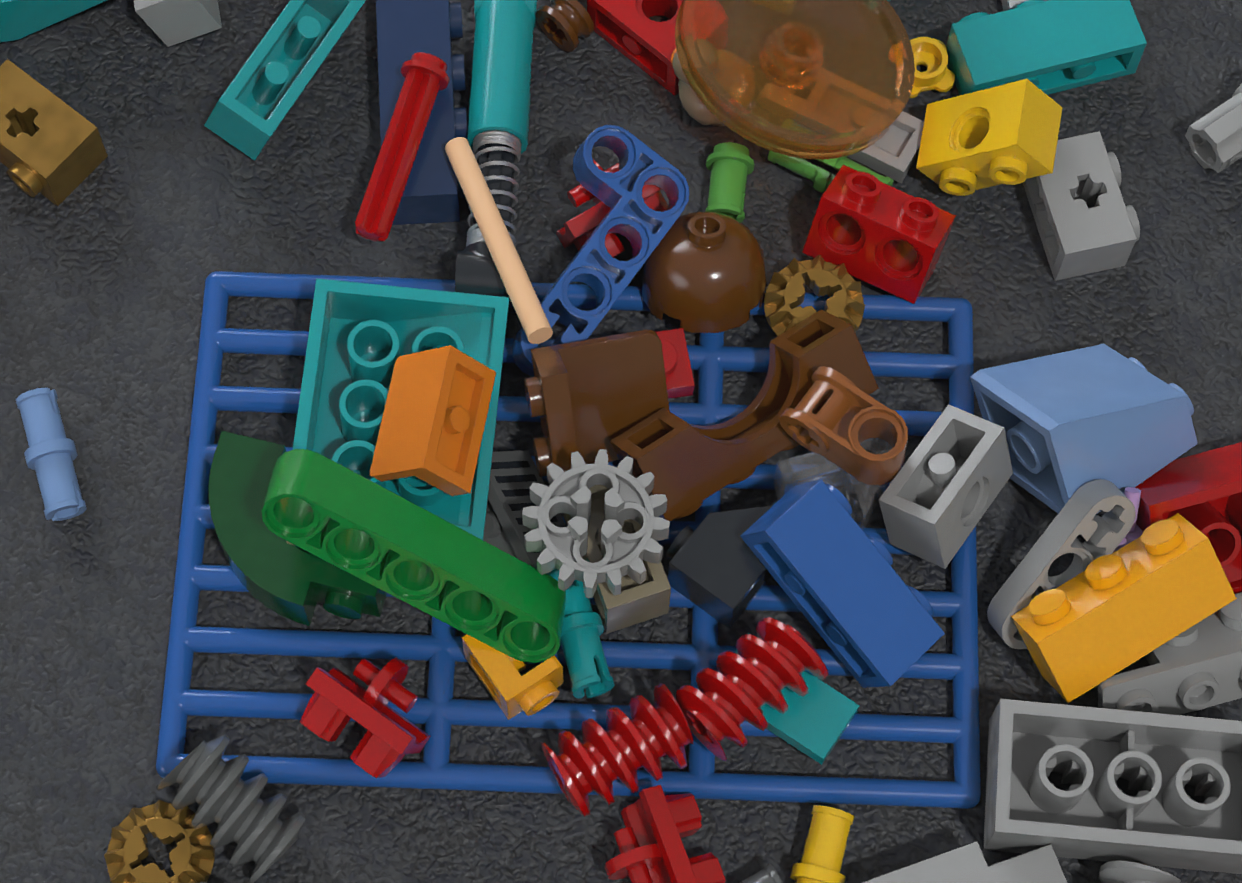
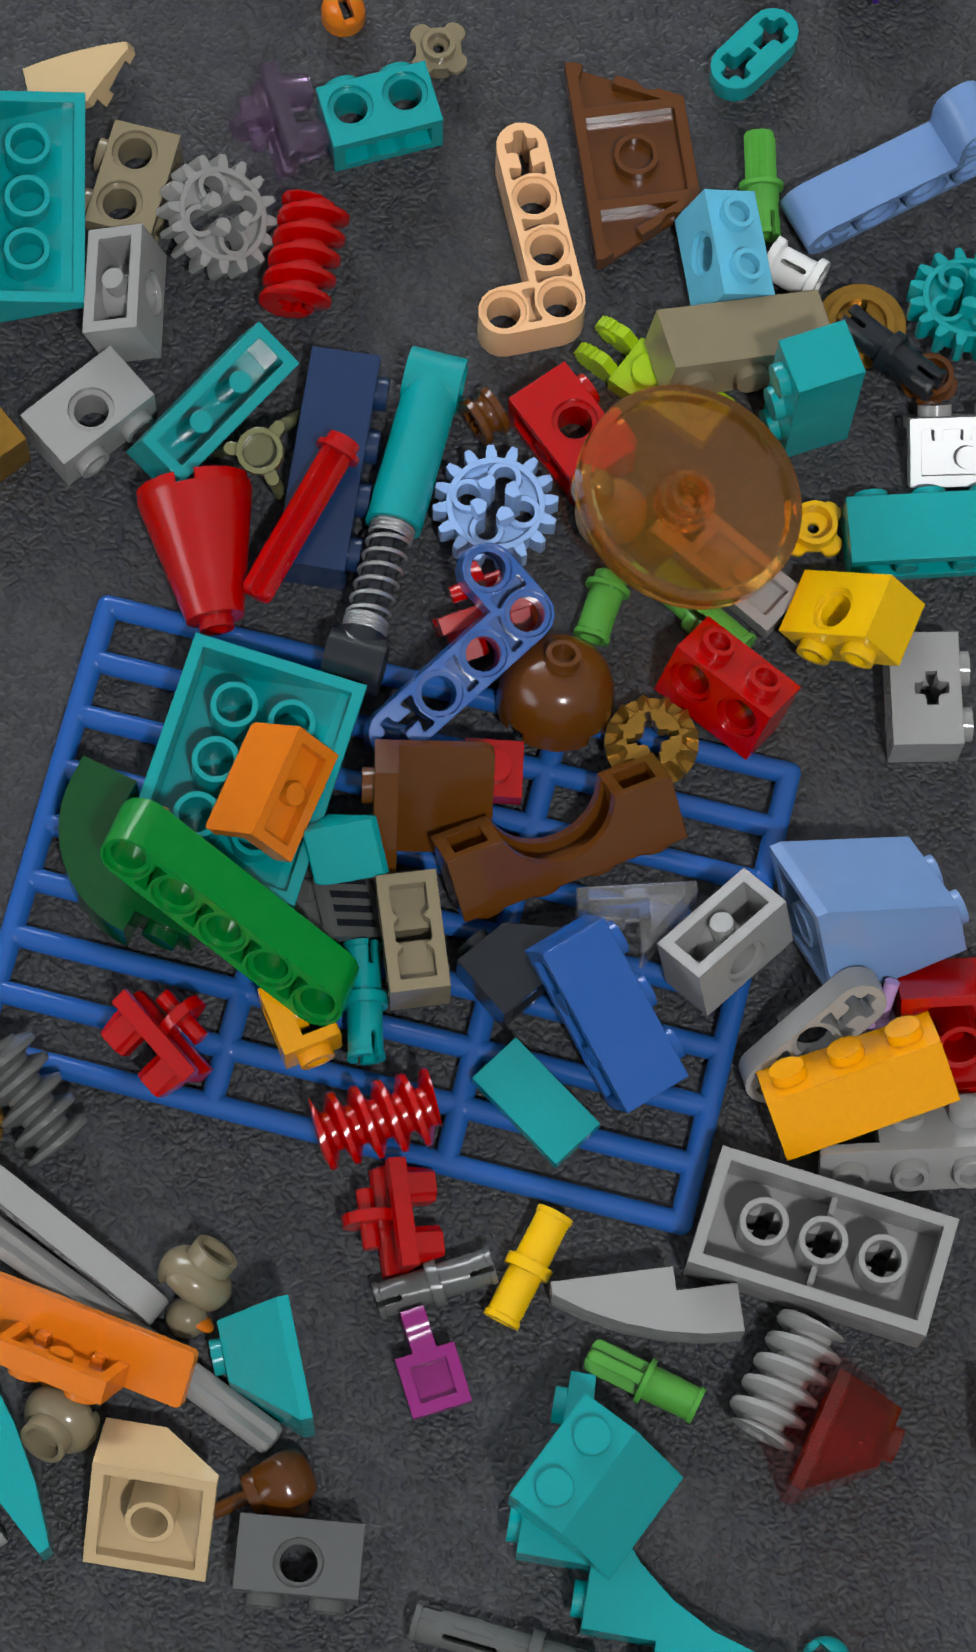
camera: 10 degrees right, 5 degrees up
(163, 67) = (102, 387): none -> light grey brick
(301, 190) = (202, 541): none -> red cone
(345, 92) = (262, 452): none -> olive plant
(498, 241) = (369, 627): light nougat bar -> none
(518, 461) = (345, 848): none -> teal slope
(574, 83) = (522, 494): none -> light blue gear
(624, 500) = (364, 929): light grey gear -> none
(747, 683) = (502, 1085): red piece -> none
(838, 418) = (637, 862): dark orange piece -> none

